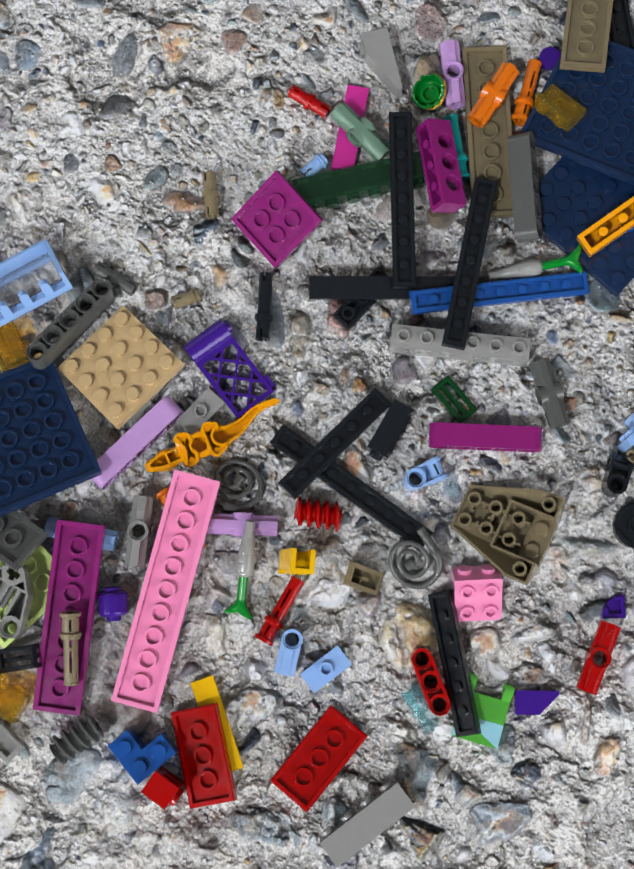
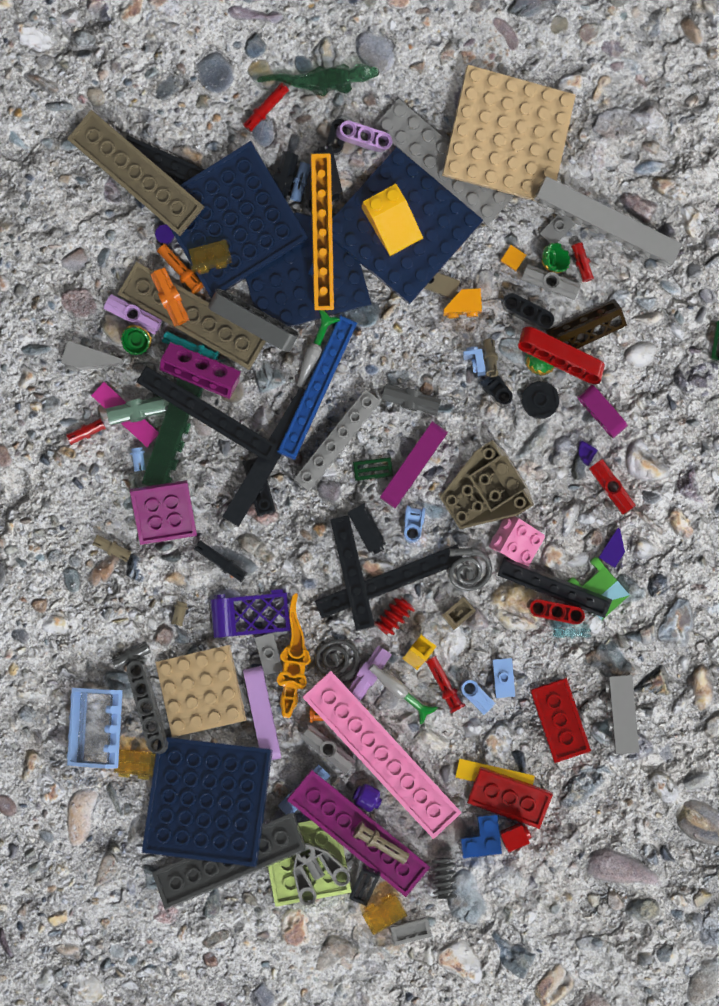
camera: 60 degrees left, 5 degrees up
(469, 264) = (284, 396): black tile -> none

